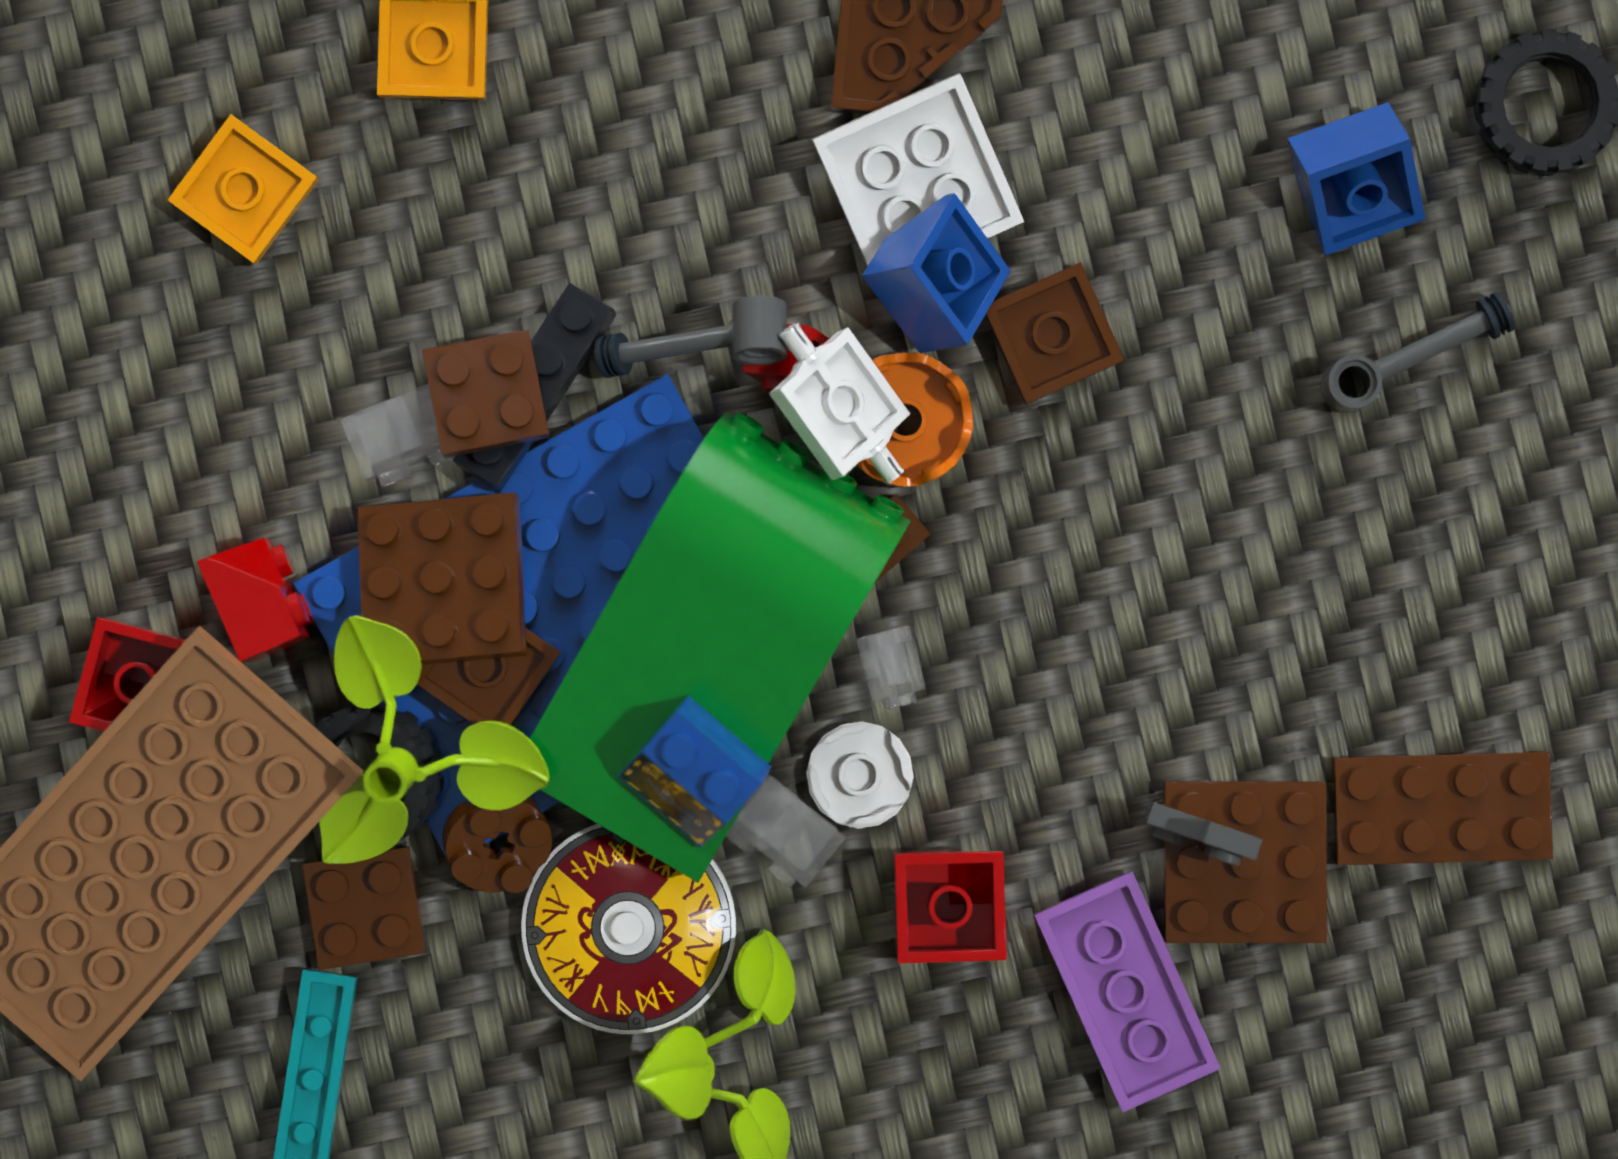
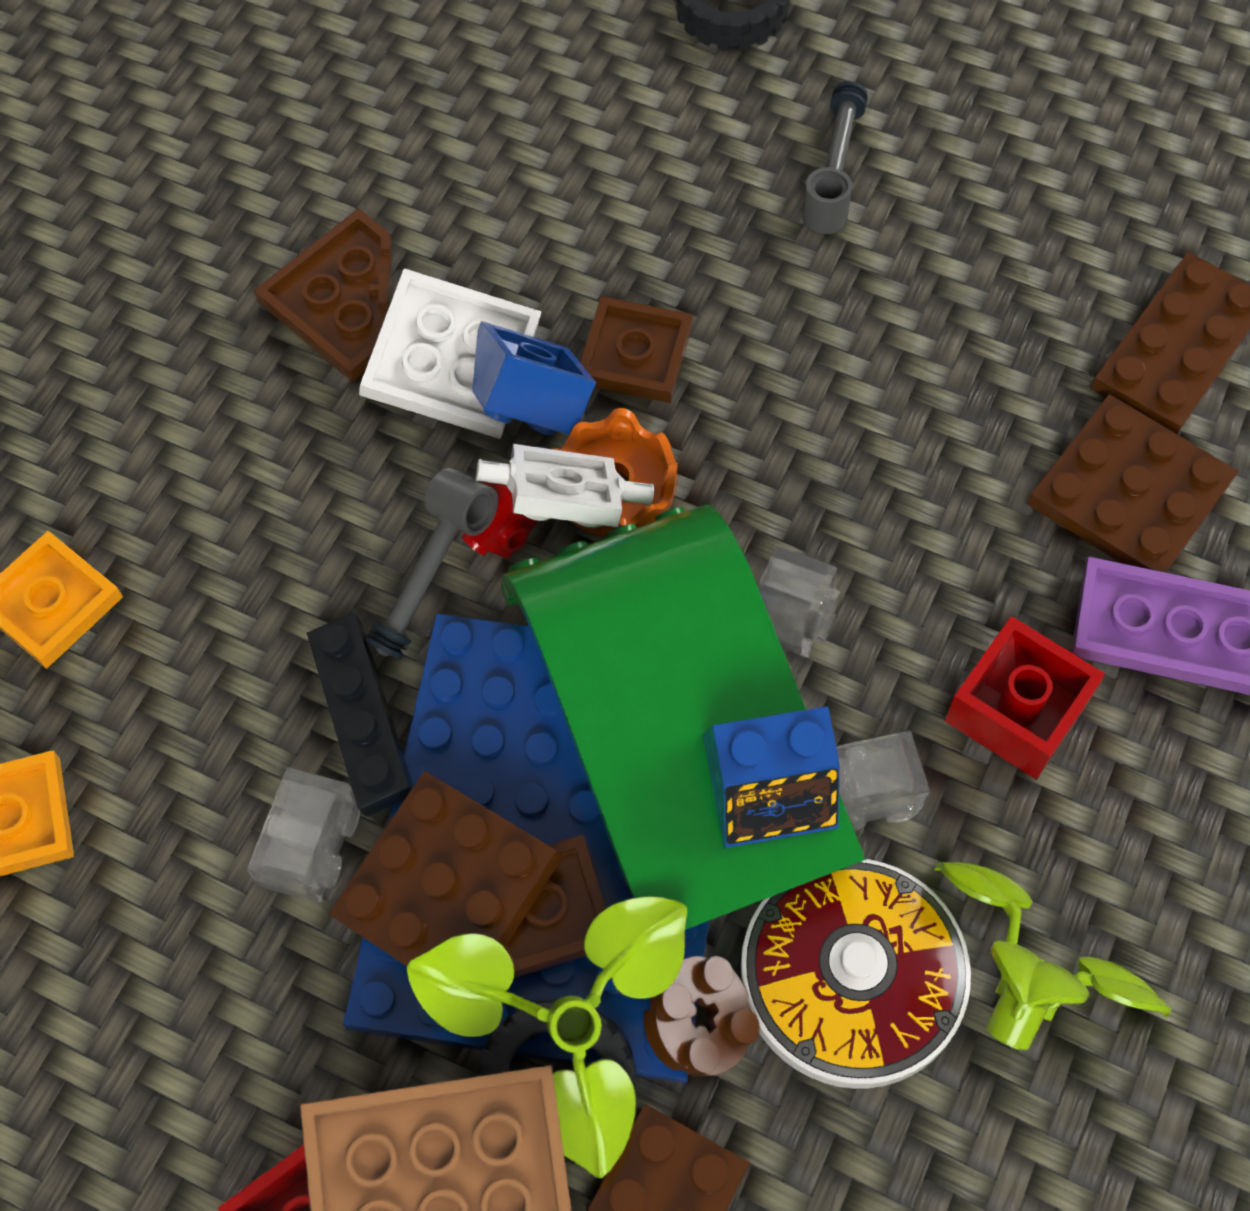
camera: 55 degrees left, 25 degrees down
(257, 599) = (326, 1053): red slope -> none
(485, 393) = (329, 737): reddish brown plate -> none
(859, 774) = (863, 696): white tile -> none
(1220, 841) = (1109, 468): dark grey plate -> none
(1357, 178) = (689, 113): blue slope -> none

